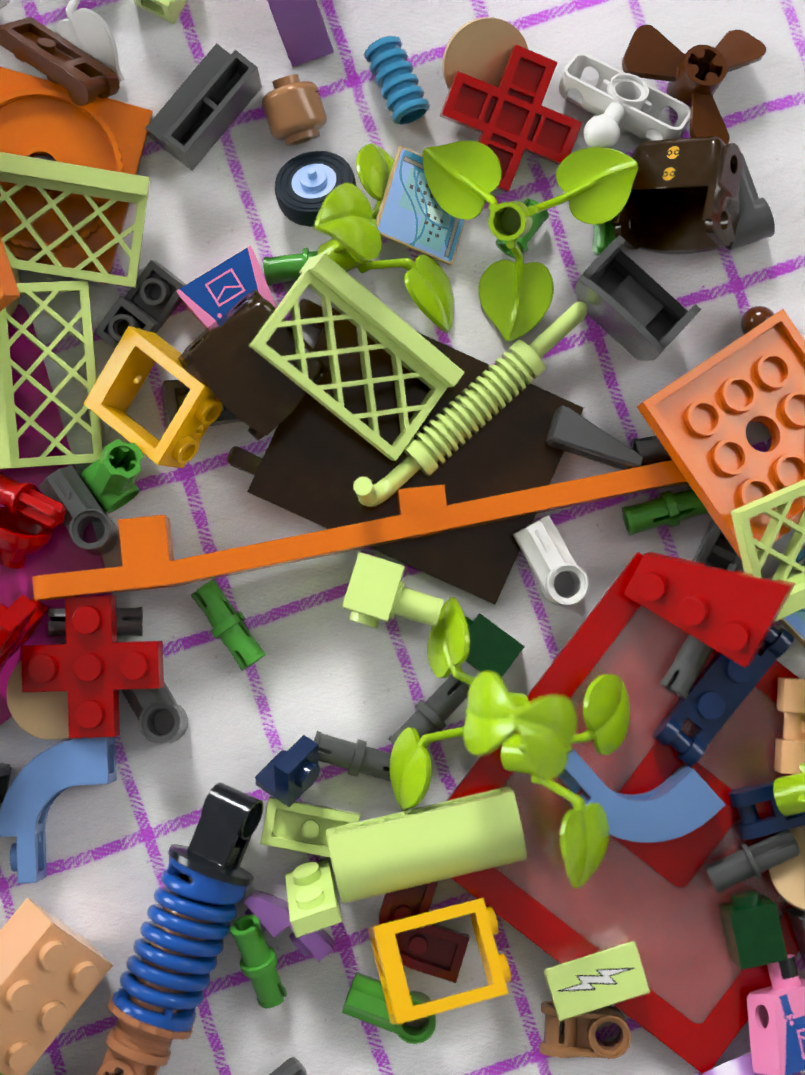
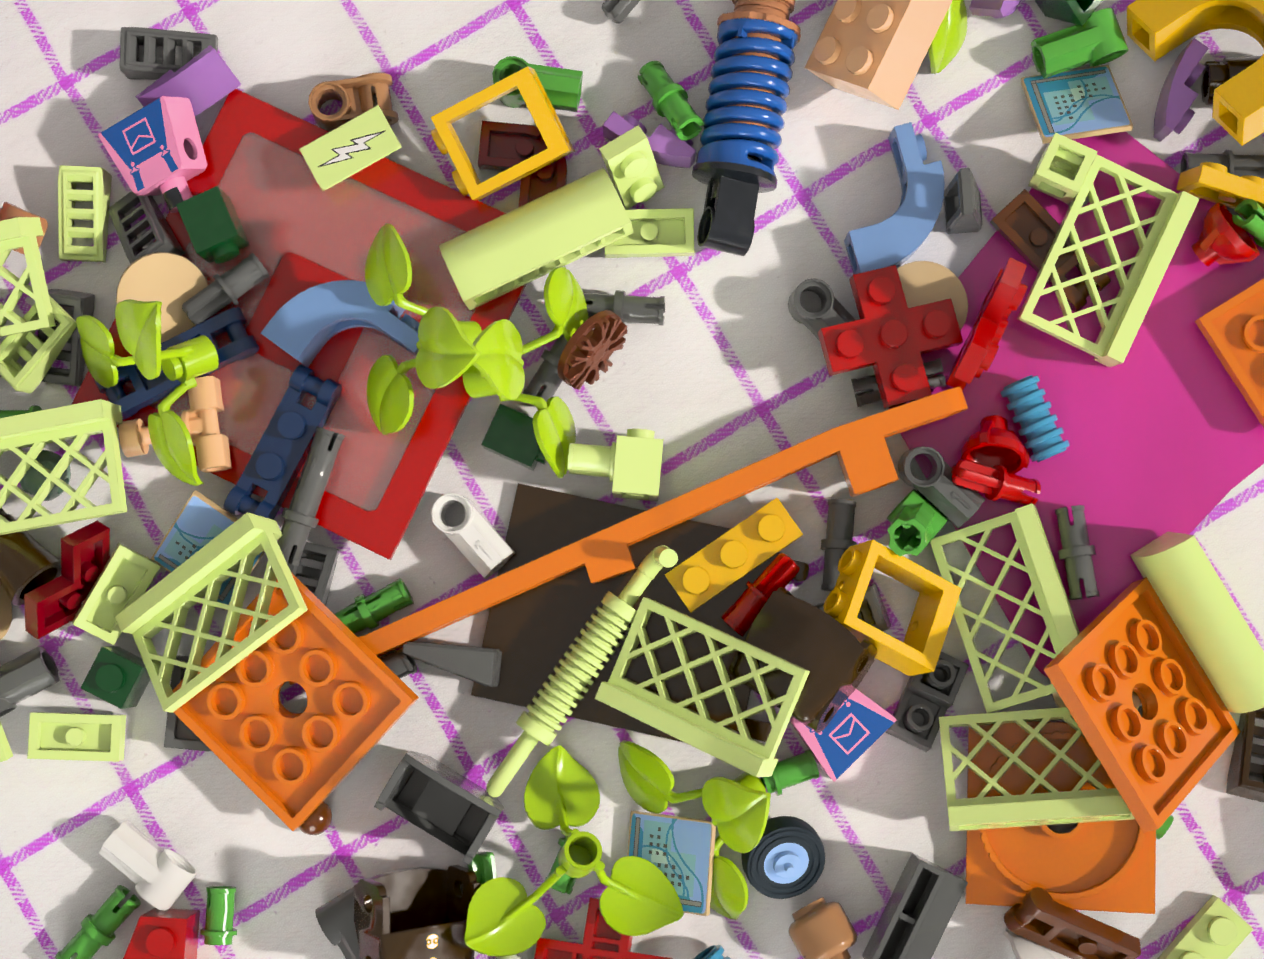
camera: 170 degrees right, 0 degrees up
(192, 479) = (838, 538): none -> dark grey pin
(228, 624) = (770, 407): bright green pin -> none
(281, 440) = (747, 607): none -> red axle
(291, 771) = (679, 279): dark blue bracket -> none
(296, 485) = (734, 555): none -> yellow plate
(394, 719) = (590, 349): none -> copper wheel
(712, 604) = (307, 517): red wing -> none

